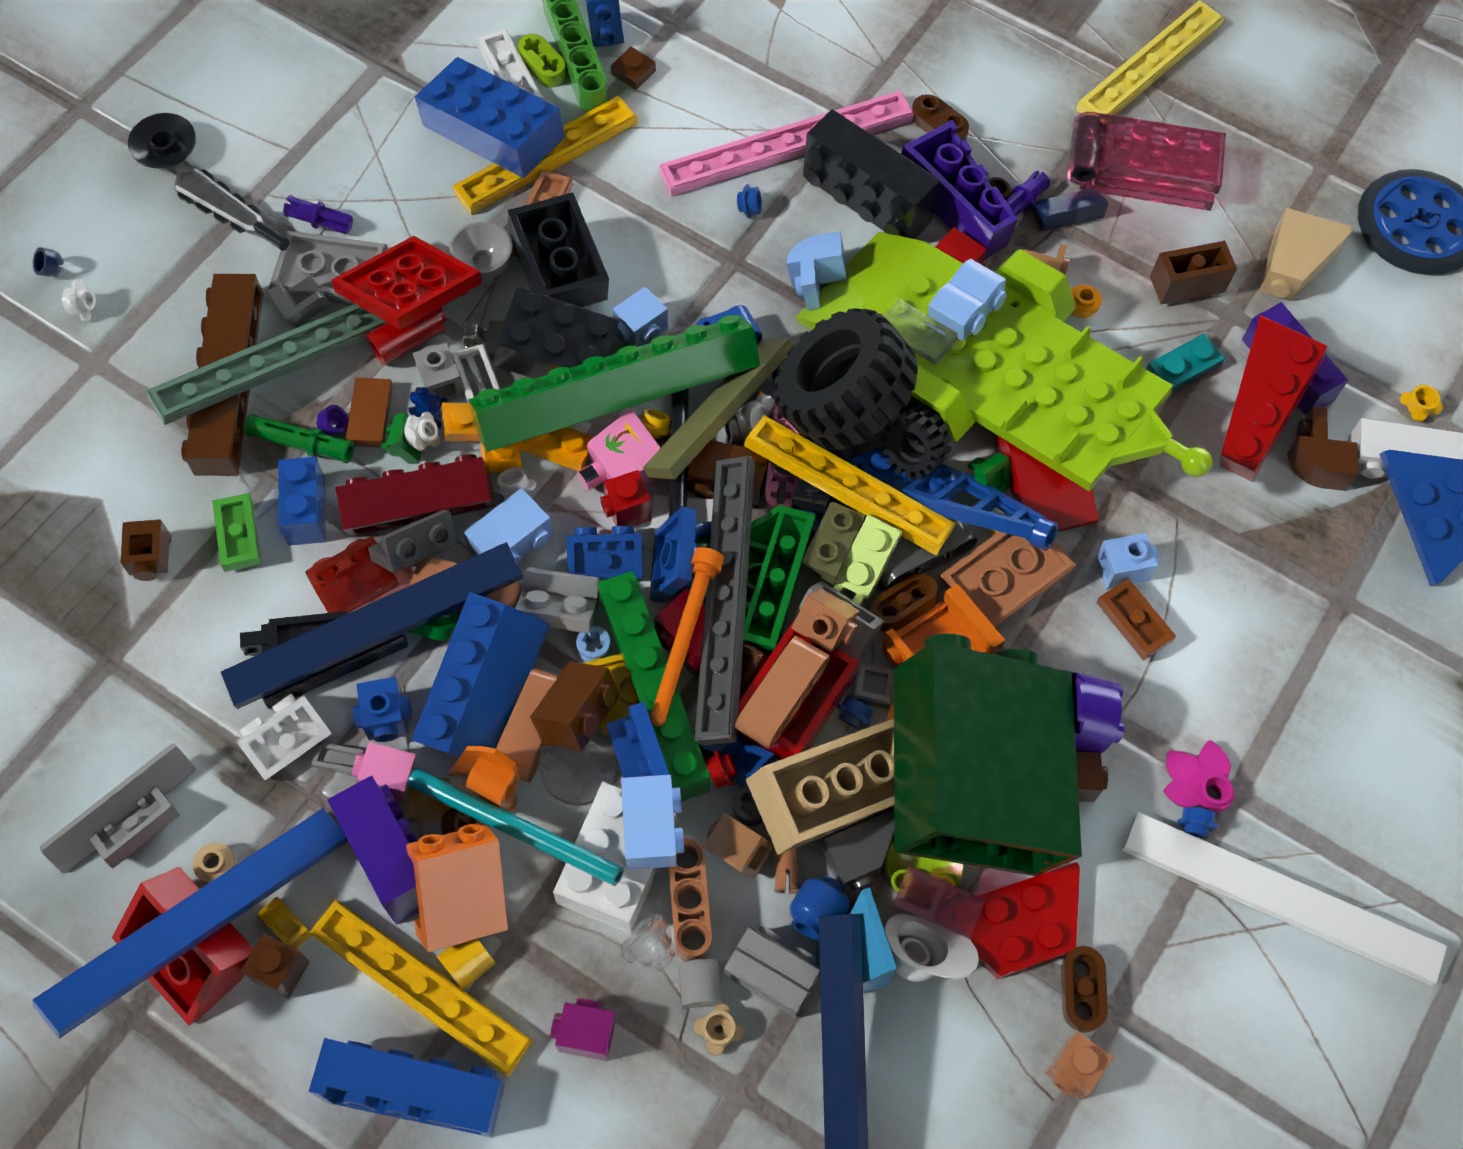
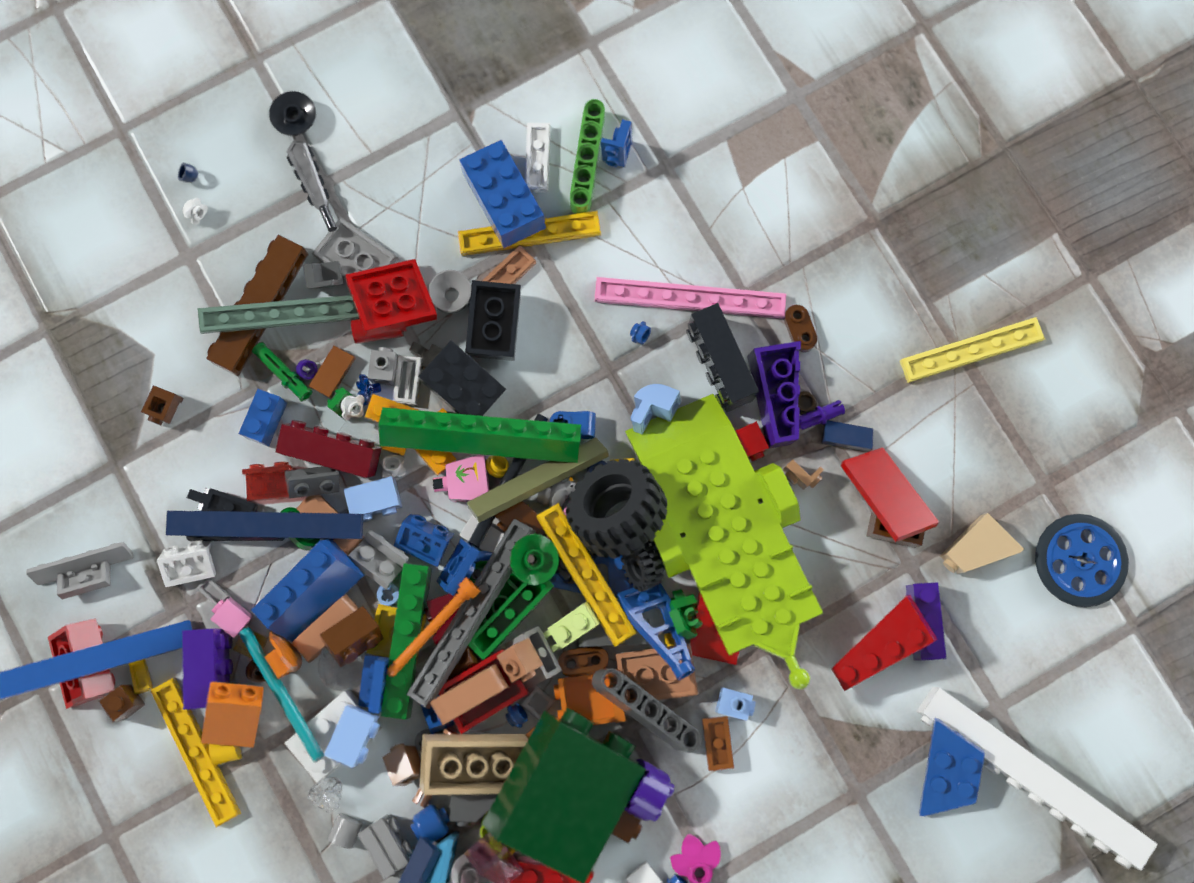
camera: 30 degrees right, 15 degrees up
(226, 861) = (124, 625): tan plate -> none
(236, 532) = (218, 418): bright green plate -> none
(318, 215) = (364, 214): dark purple axle -> none
(382, 709) = (246, 579): blue brick -> none
(406, 1087) = (158, 809): blue wedge -> none
(547, 57) = (566, 157): lime beam -> none
(584, 1029) = (267, 825): magenta brick -> none
(626, 500) = (451, 512): red brick -> none
(633, 68) = (618, 192): reddish brown plate -> none
(640, 318) = (524, 388): light blue brick -> none
(696, 919) = (356, 793): nougat beam -> none
(719, 1017) = (335, 865): tan plate -> none
(721, 769) = (417, 715): red plate -> none
(773, 489) = (545, 558): none -> green dish
(833, 542) = (557, 605): olive bracket -> none
(921, 332) = (684, 492): clear tile -> none
(968, 299) = (726, 488): light blue brick -> none
(1008, 484) = (683, 622): none -> green tile
(1024, 610) = (658, 712): none -> dark grey beam
(1086, 308) = (808, 509): light orange plate -> none
(1146, 160) = (882, 415): clear pink hinge -> none
(1162, 233) = (889, 494): none -> tile
(1187, 362) = (855, 586): teal plate -> none
(1319, 459) = (897, 694): reddish brown brick -> none
(1427, 396) = (1000, 690): yellow plate -> none

